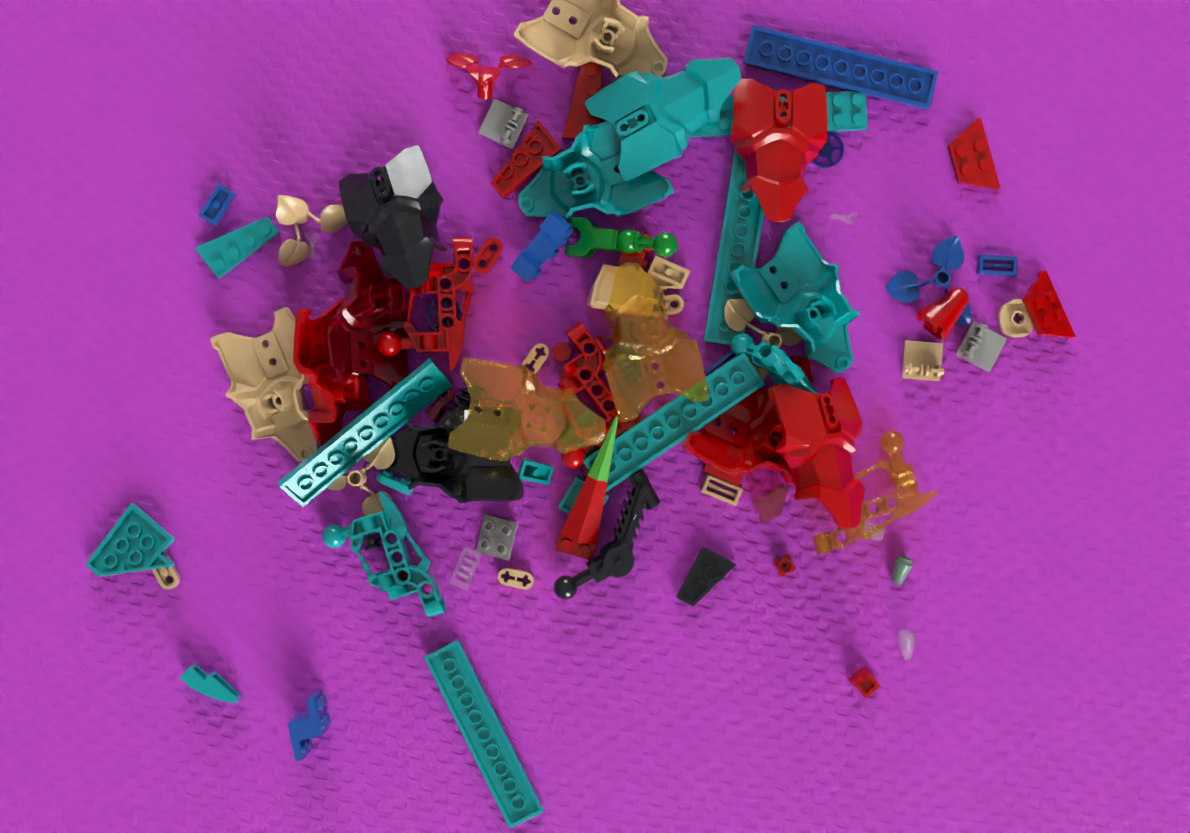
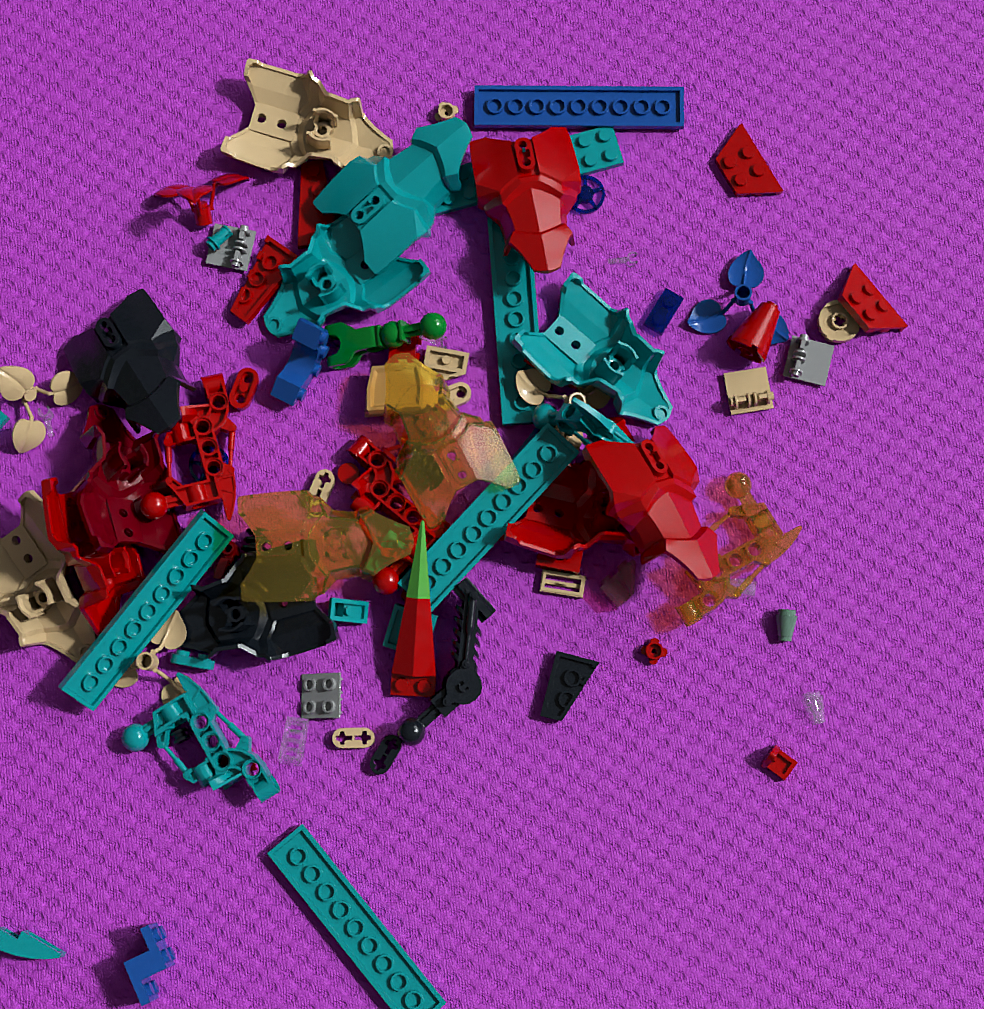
camera: 15 degrees left, 10 degrees down
(494, 114) = (215, 241): none -> teal pin
(536, 595) = (390, 757): none -> black beam
(720, 38) = (446, 107): none -> tan plate
(867, 272) = (663, 311): none -> clear blue plate
(980, 265) = (786, 282): blue tile -> none

